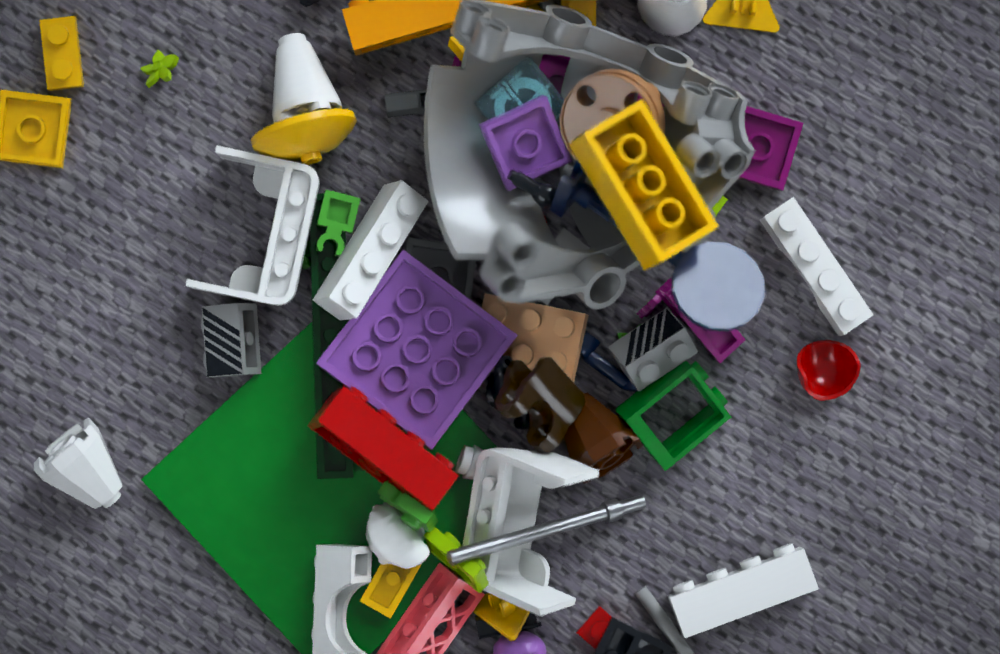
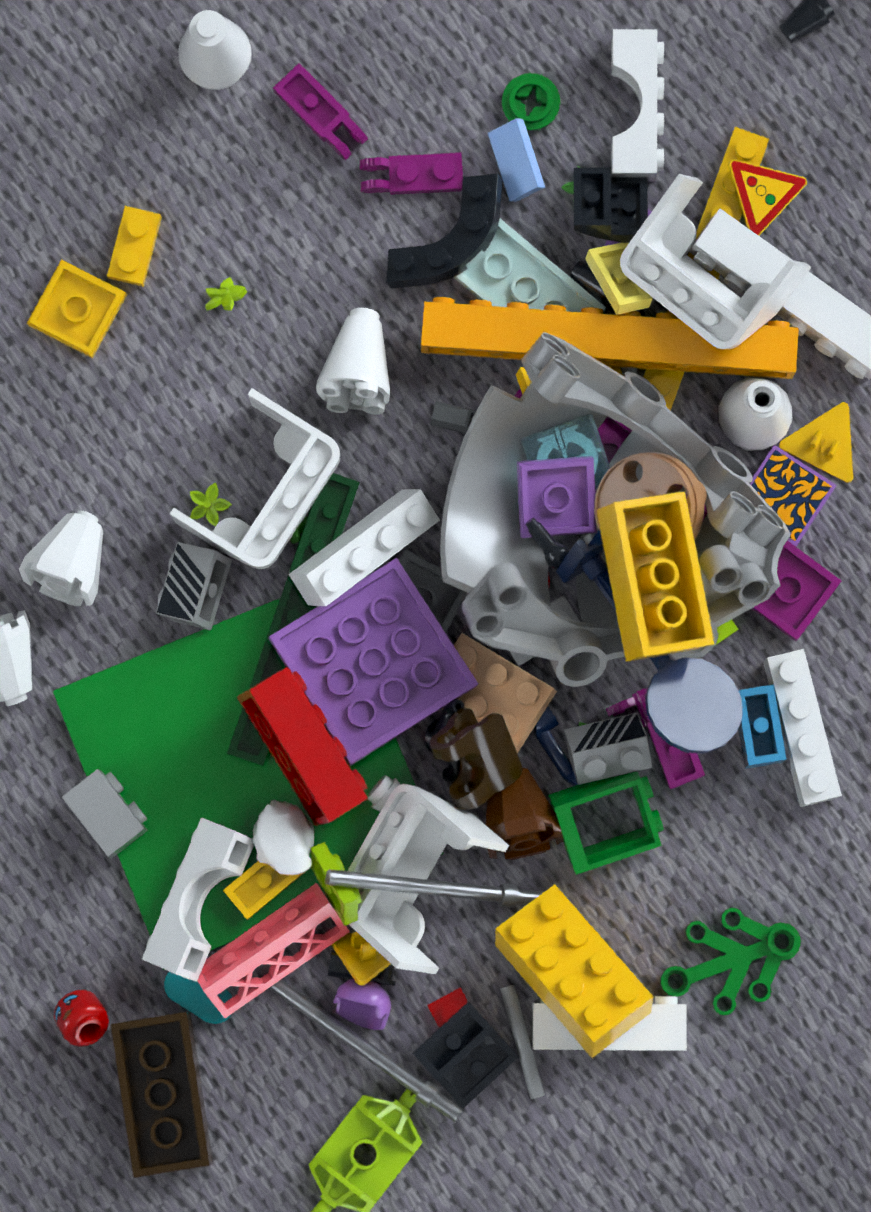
camera: 25 degrees right, 5 degrees down
(110, 358) = (67, 560): none -> white cone
(216, 261) = (208, 504): none -> lime plant
(230, 571) = (105, 812): none -> light grey brick
(305, 135) = (342, 410): yellow dish -> none
(337, 216) = (344, 501): bright green plate -> none
(414, 513) = (309, 819): bright green plate -> none
(695, 557) = (573, 970): none -> yellow brick
(729, 58) = (791, 491): none -> tile
(783, 284) = (760, 728): none -> dark azure brick
(827, 369) = (776, 834): red helmet -> none
(831, 490) = (736, 958): none -> green plant

